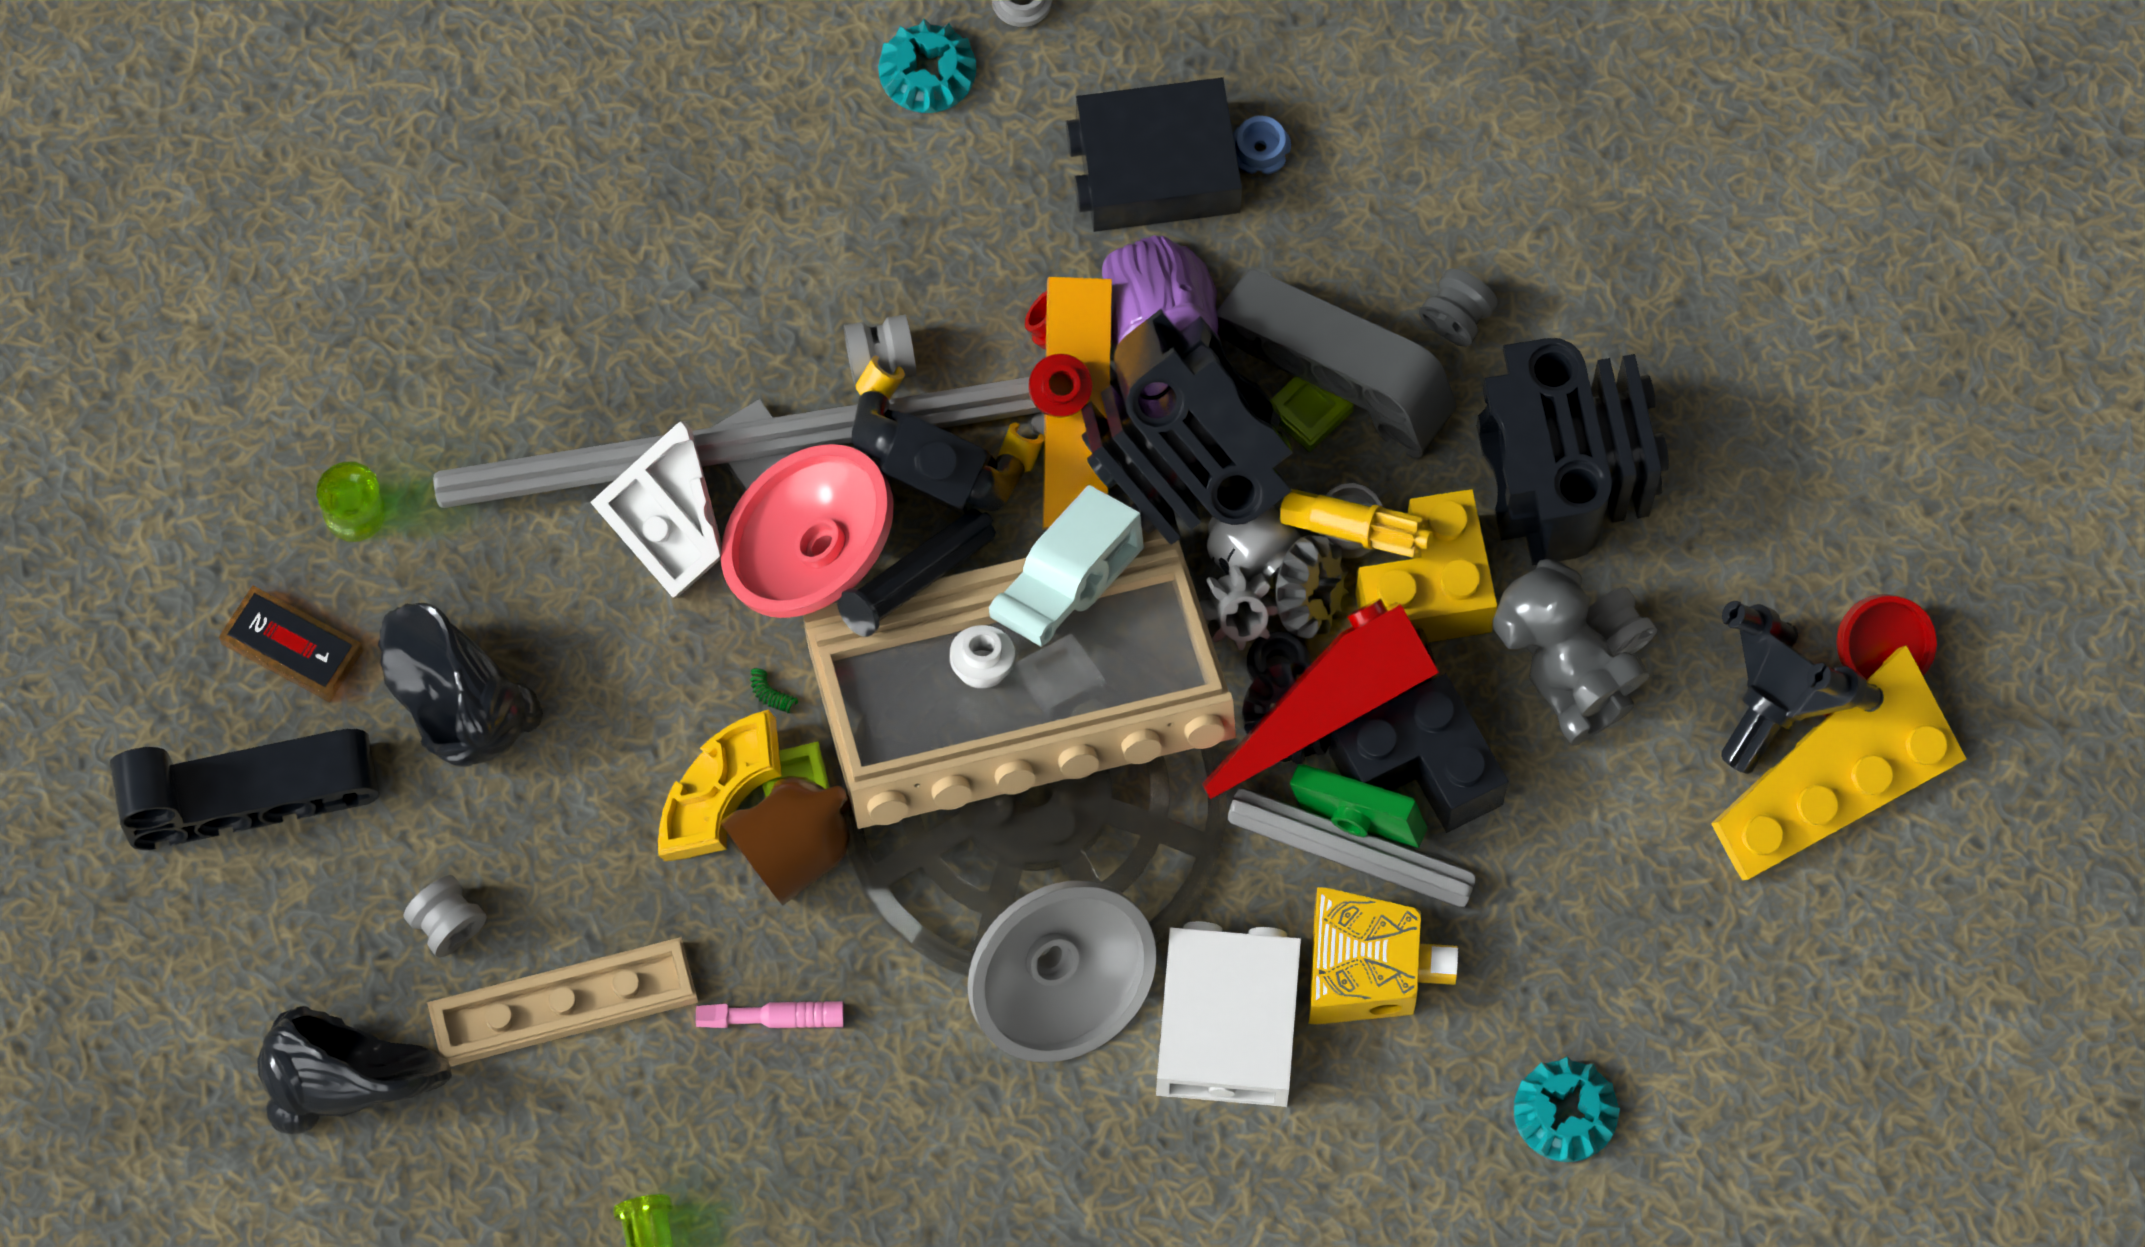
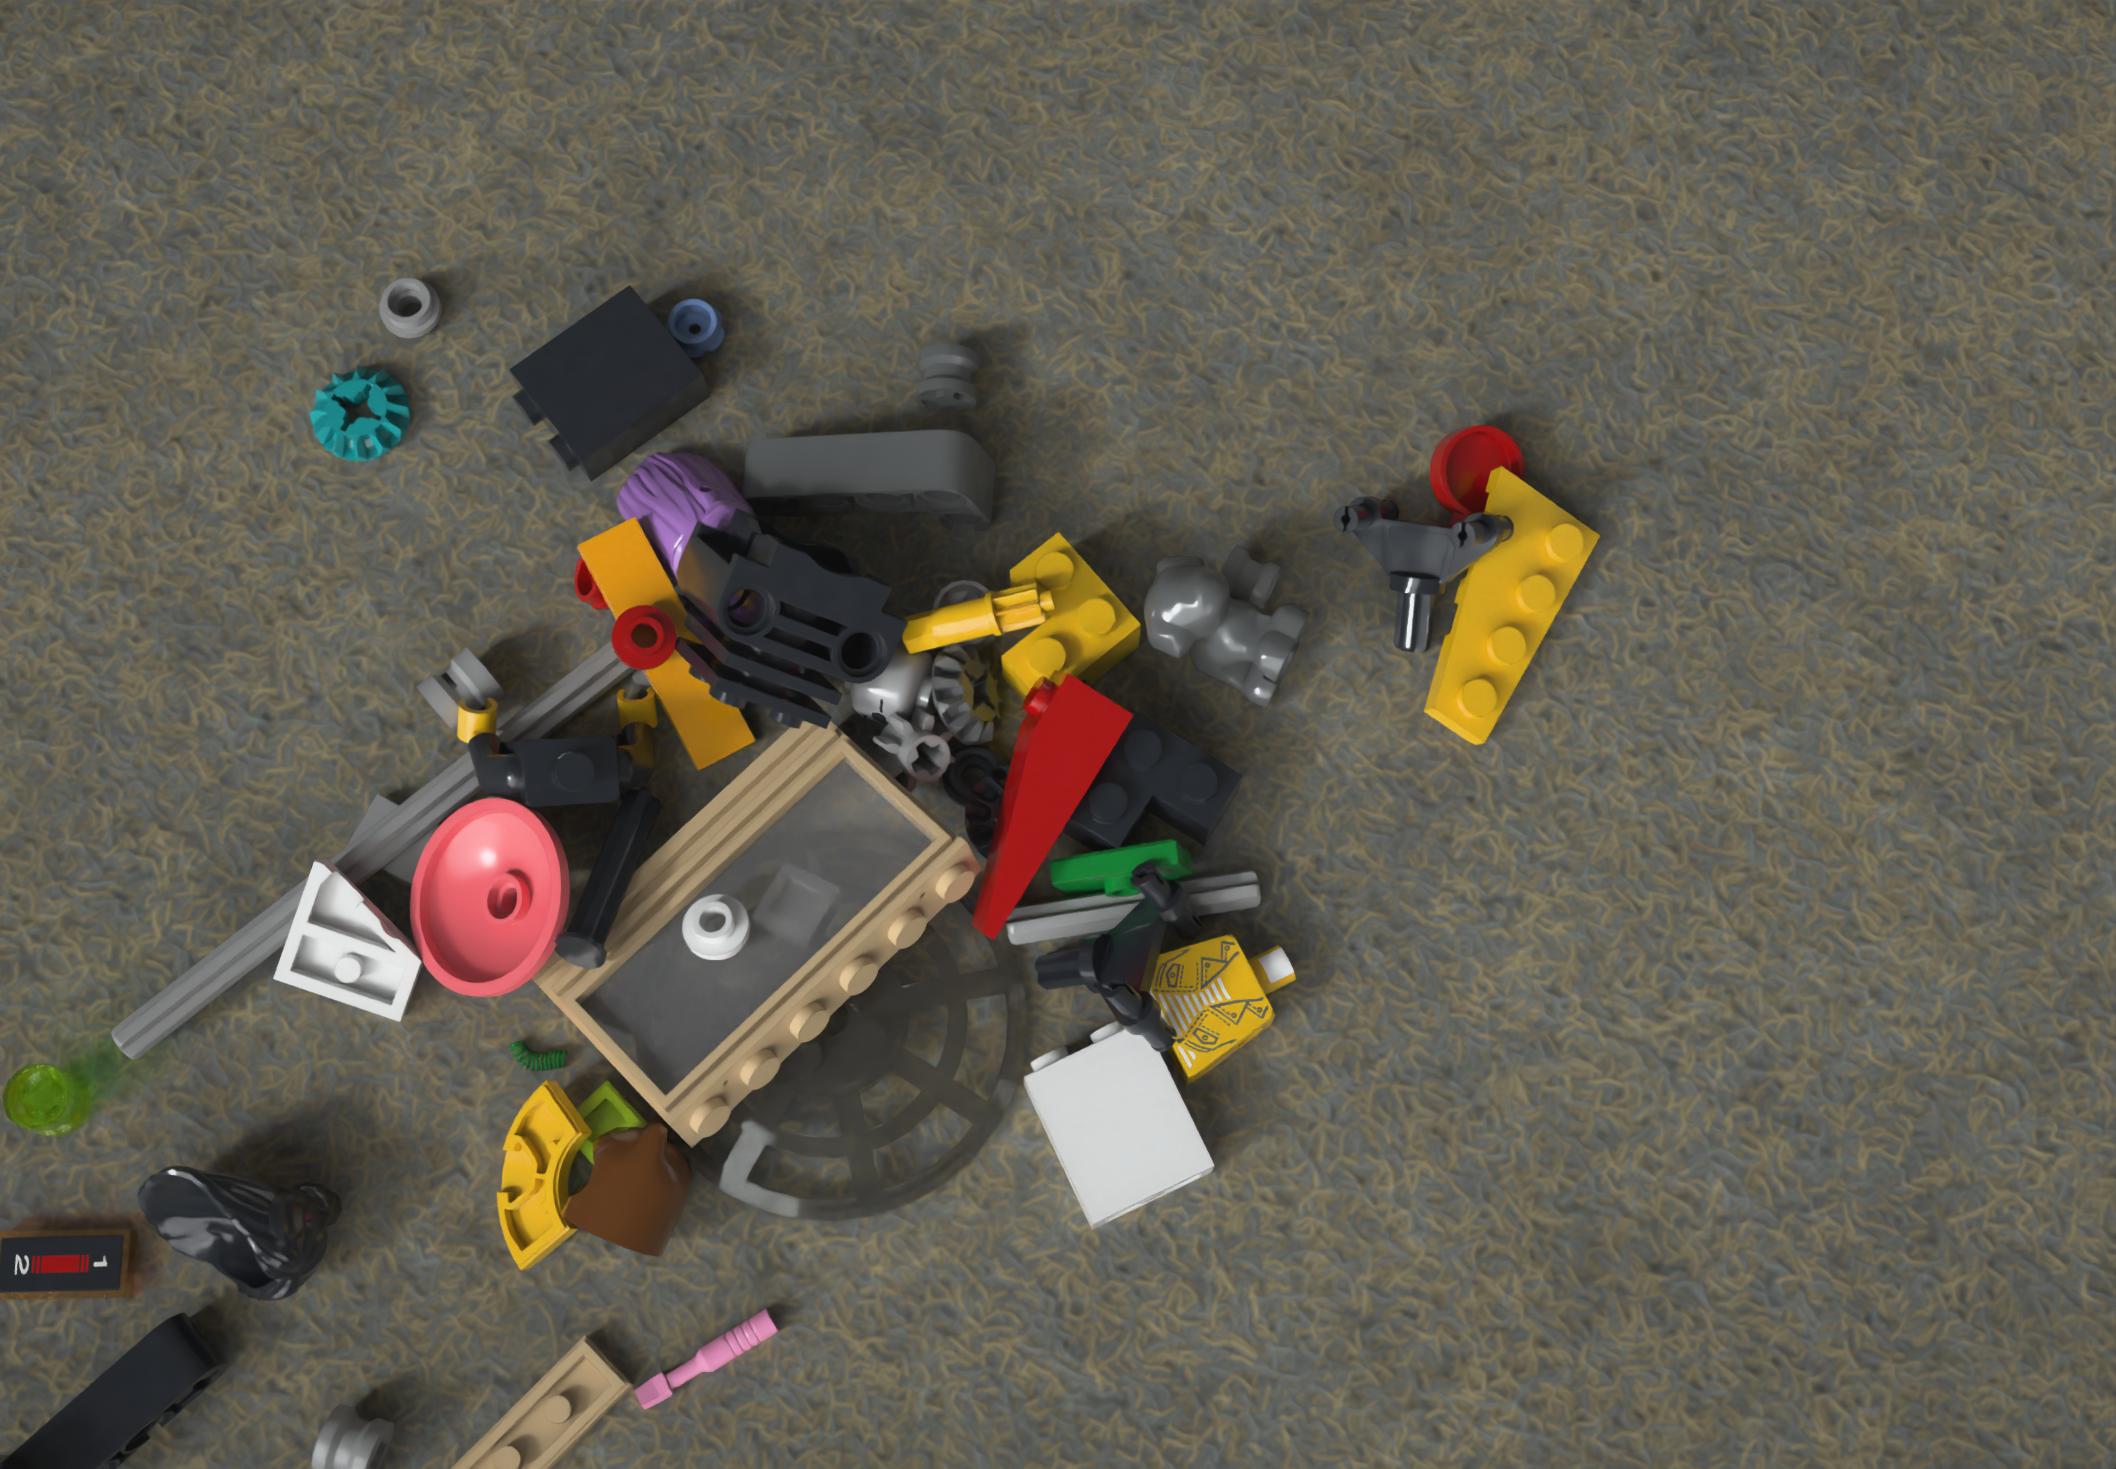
camera: 30 degrees left, 5 degrees up
(1070, 565) = (747, 799): light aqua piece -> none
(1076, 991) = (951, 1175): light grey dish -> none
(1310, 412) = (872, 538): lime tile -> none
(1310, 880) = (1125, 958): none -> black axle
(1568, 446) = (1117, 448): black piece -> none
(1576, 1137) = (1431, 1057): teal gear -> none

